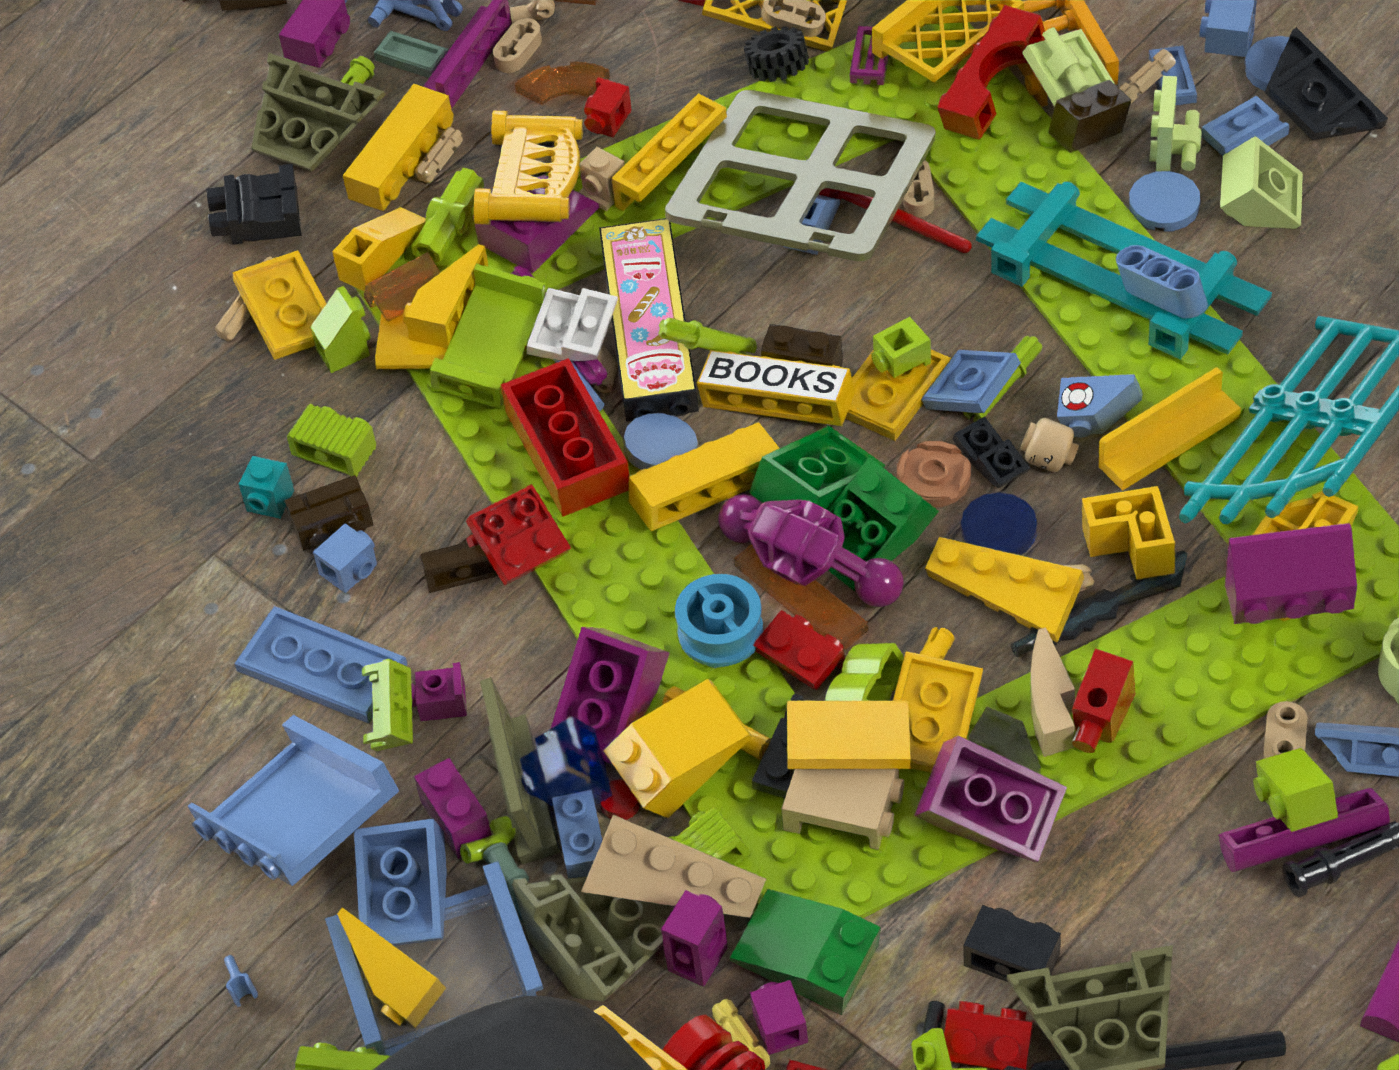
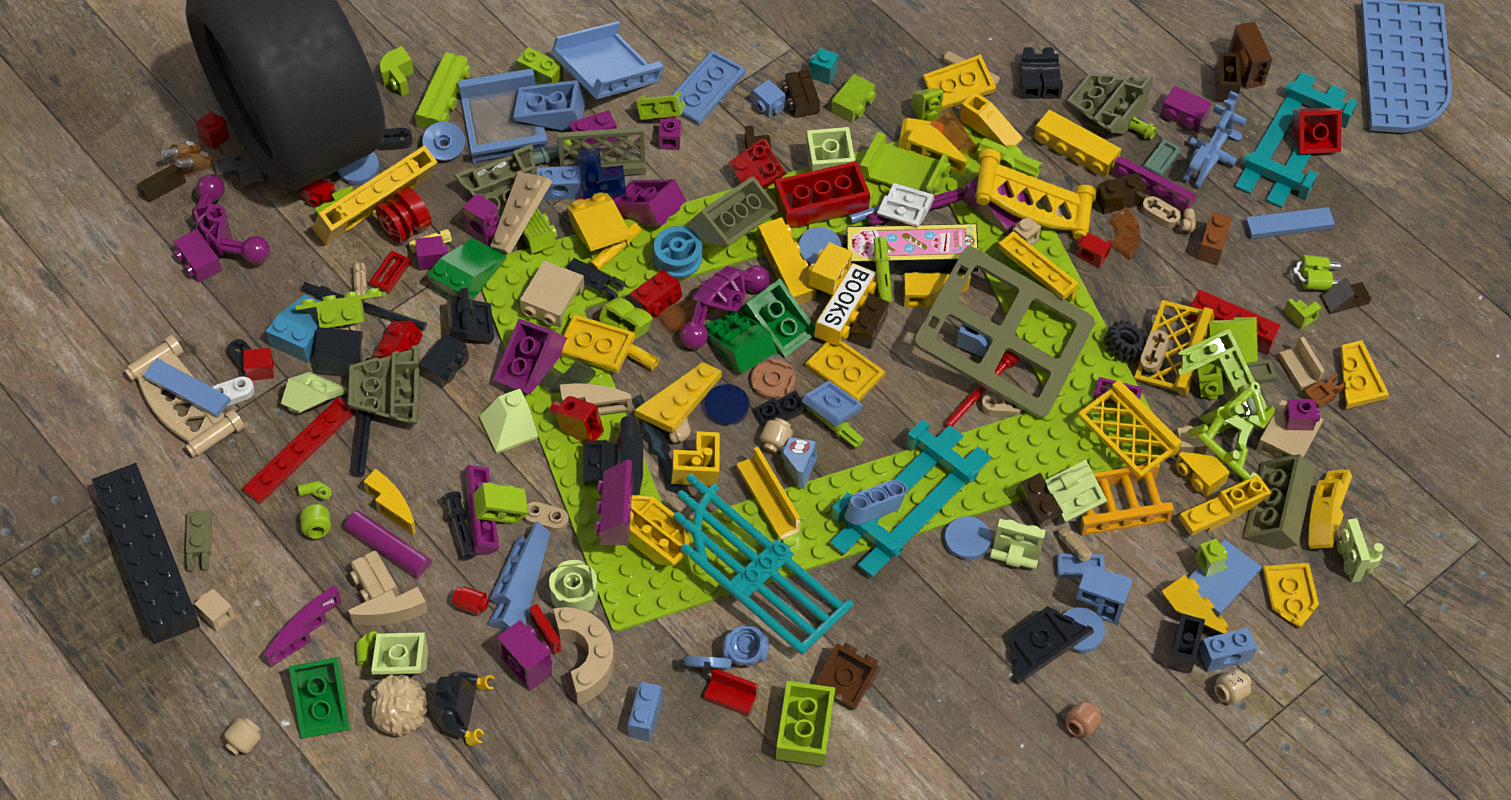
camera: 90 degrees right, 5 degrees up
(239, 983) = (514, 42): medium blue hand -> none
(302, 932) = (545, 68): none -> lime brick
(394, 977) = (497, 93): yellow slope -> none
(438, 155) = (1071, 165): tan axle -> none
(475, 437) = (829, 148): none -> yellowish green brick
(493, 82) = (1121, 193): none -> dark brown brick
(637, 541) = (734, 214): none -> olive slope
(721, 289) = (923, 289): none -> yellow slope
(725, 397) = (830, 268): none -> yellow brick
(848, 735) = (580, 293): yellow tile -> none
(901, 348) = (859, 367): lime brick -> none
(919, 919) = (469, 318): none -> black plate
(968, 104) = (1057, 433): red arch -> none
(1113, 826) = (509, 422): none -> yellowish green slope
(1165, 638) = (602, 455): none -> black plate
(1244, 123) = (1019, 594): medium blue plate -> none
(1261, 187) = (963, 591): yellowish green slope -> none
(1328, 970) = (389, 500): none -> yellow slope

